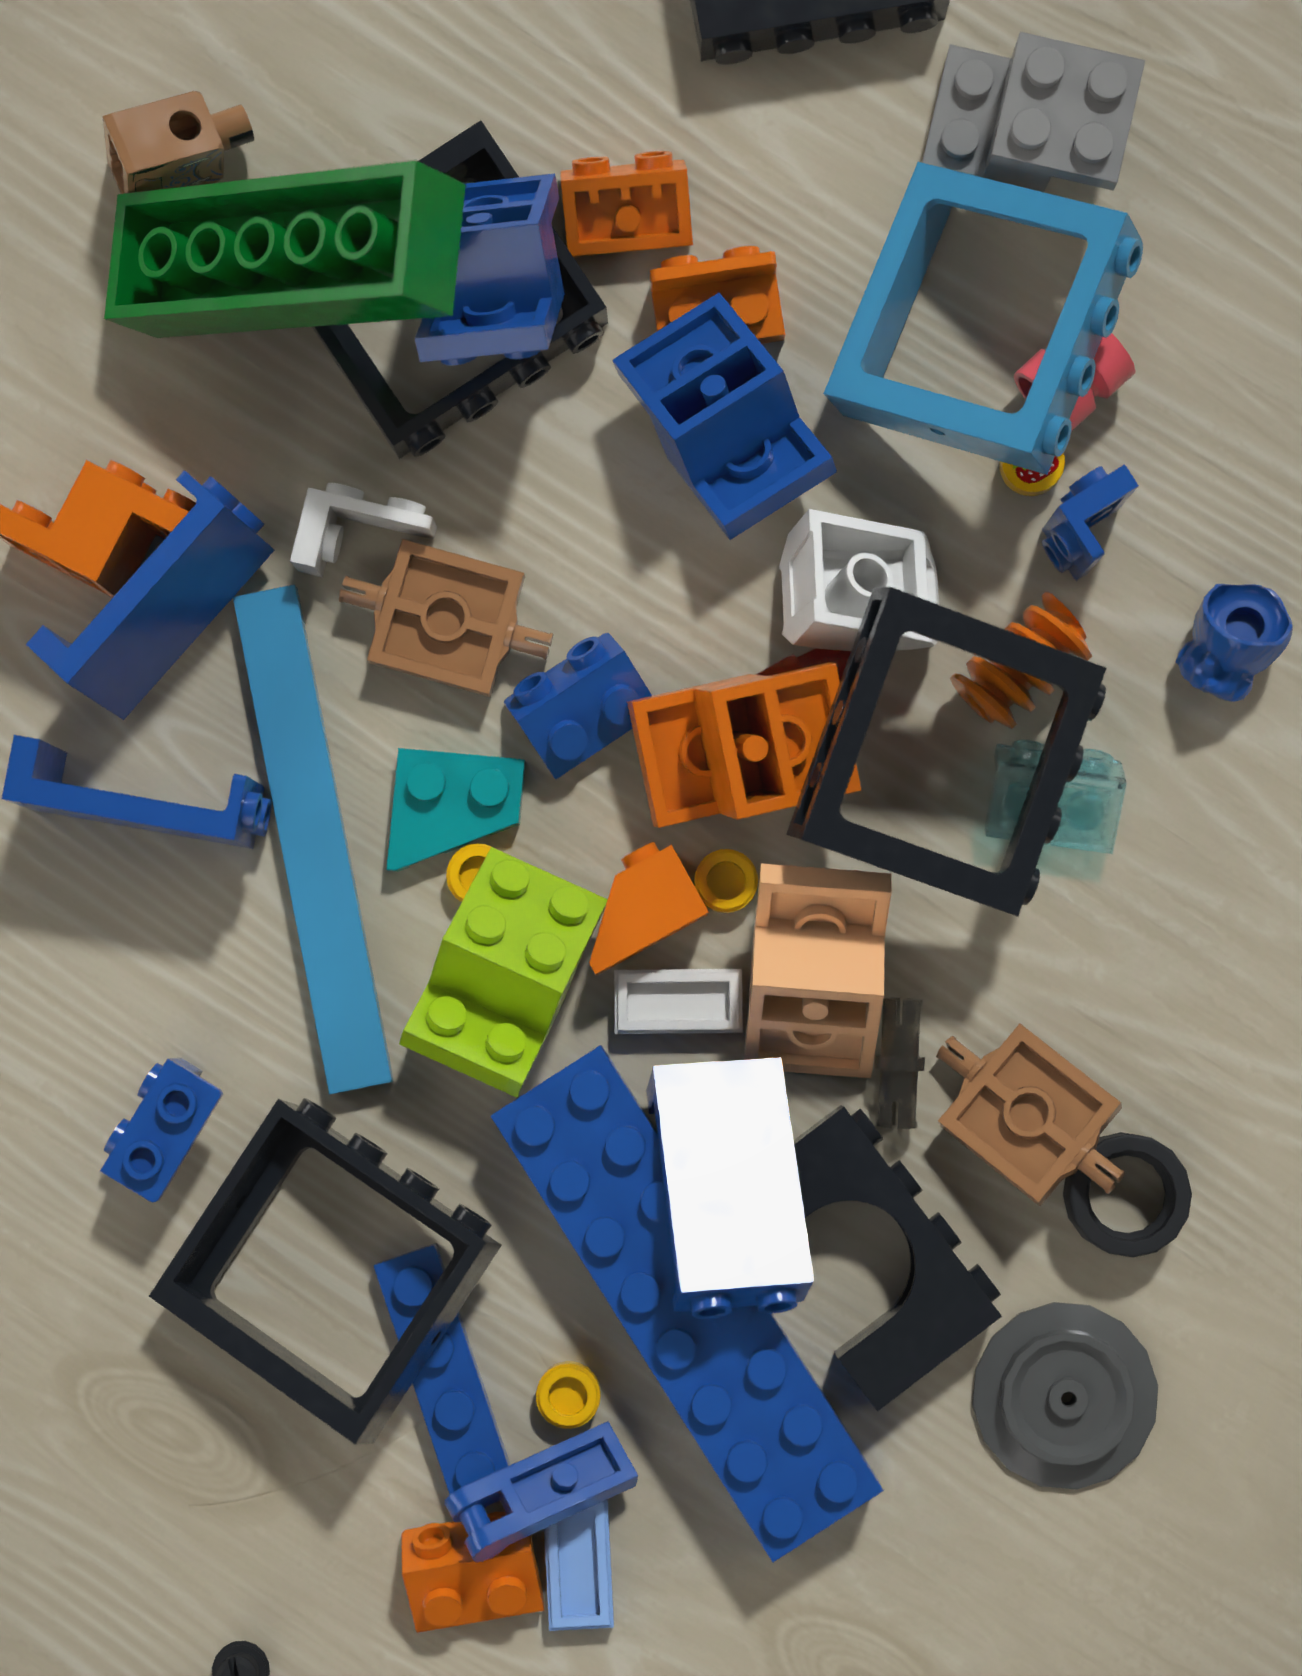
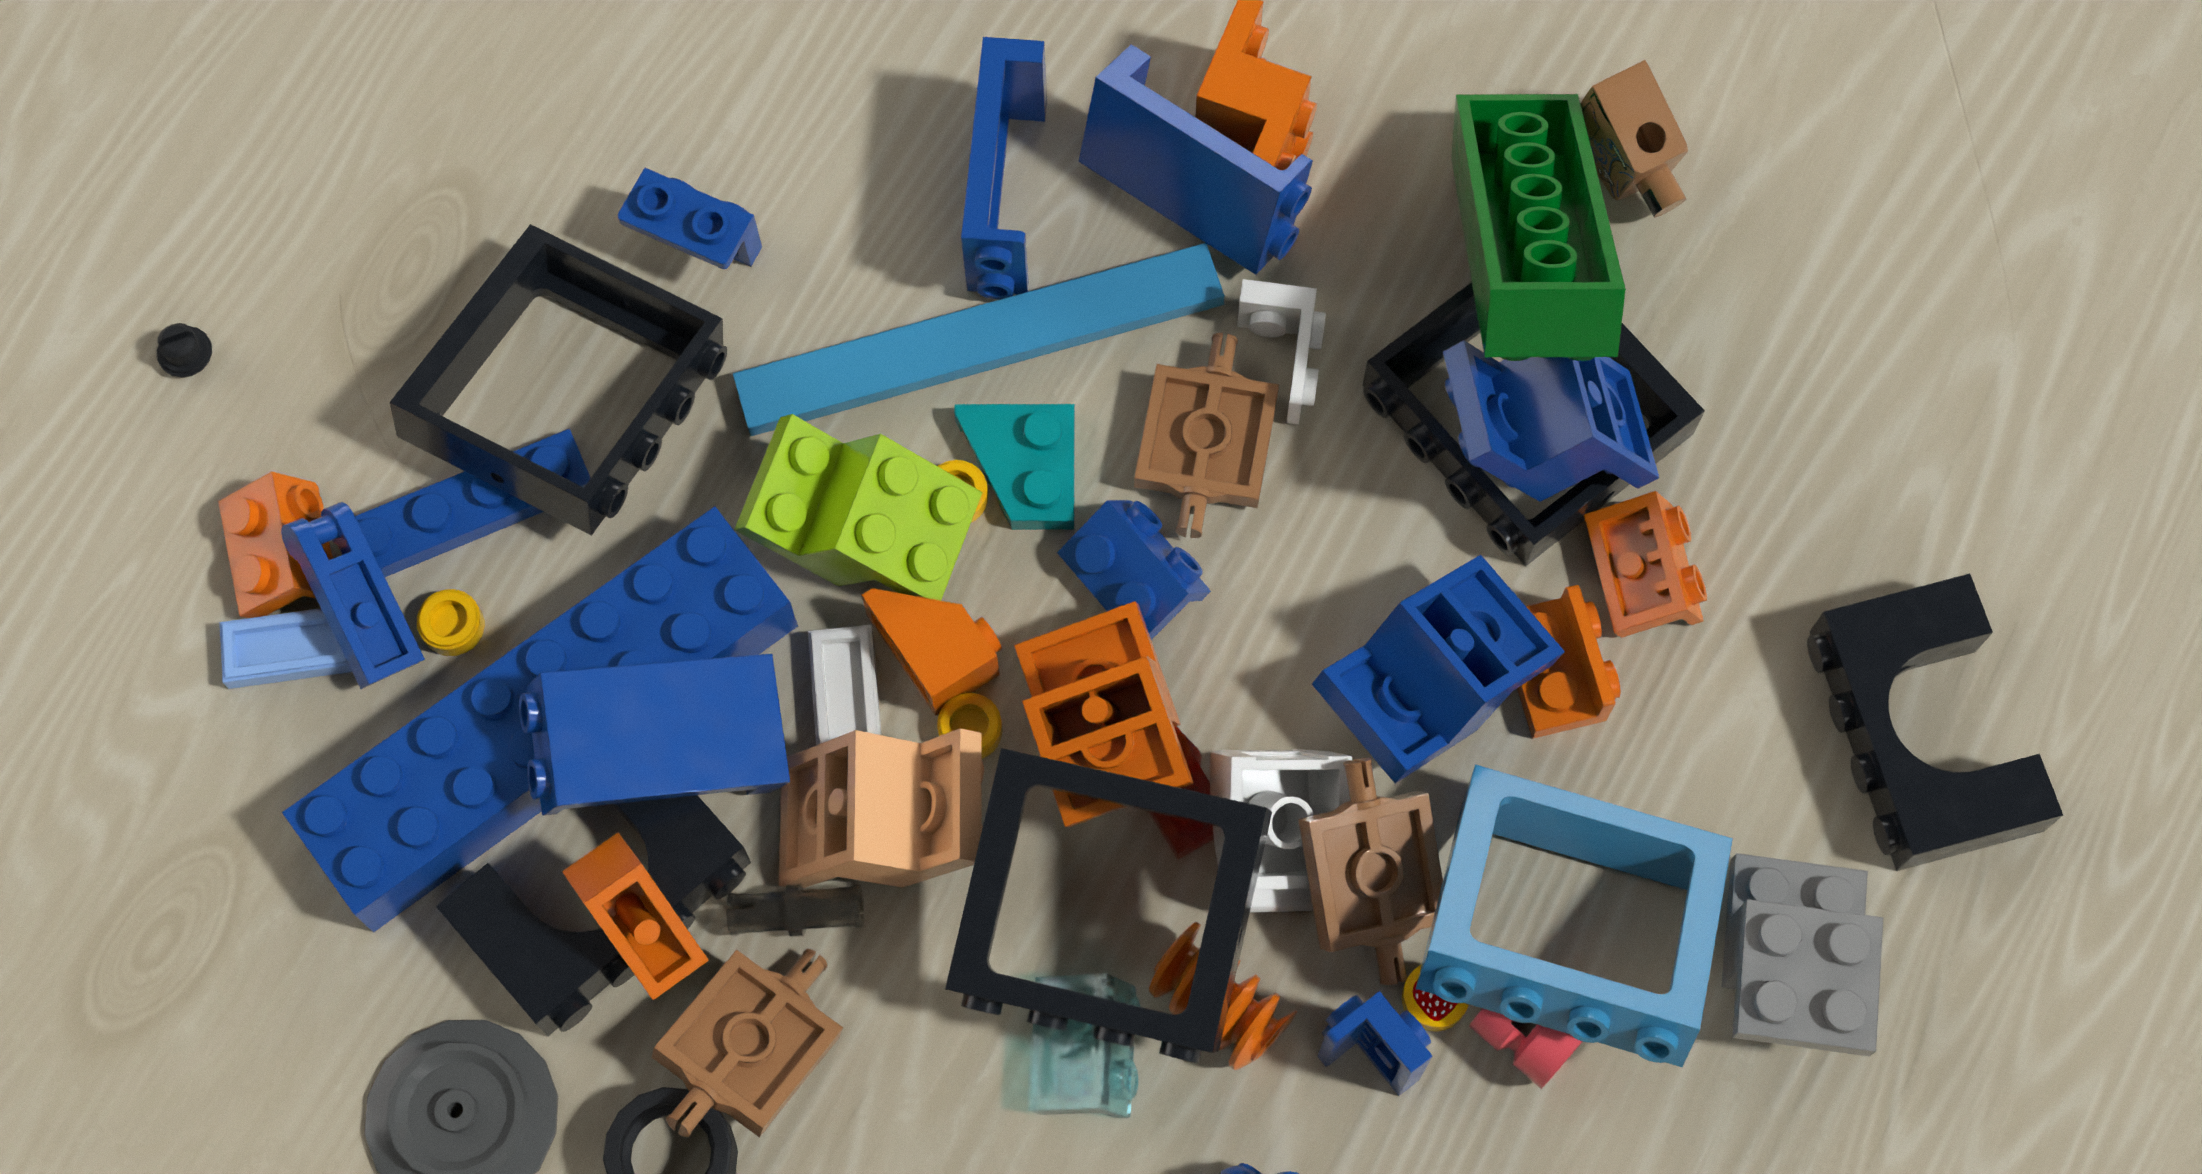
camera: 80 degrees right, 15 degrees down
(913, 1214) = (635, 916): none -> orange slope
(917, 503) = (1372, 870): none -> medium nougat plate

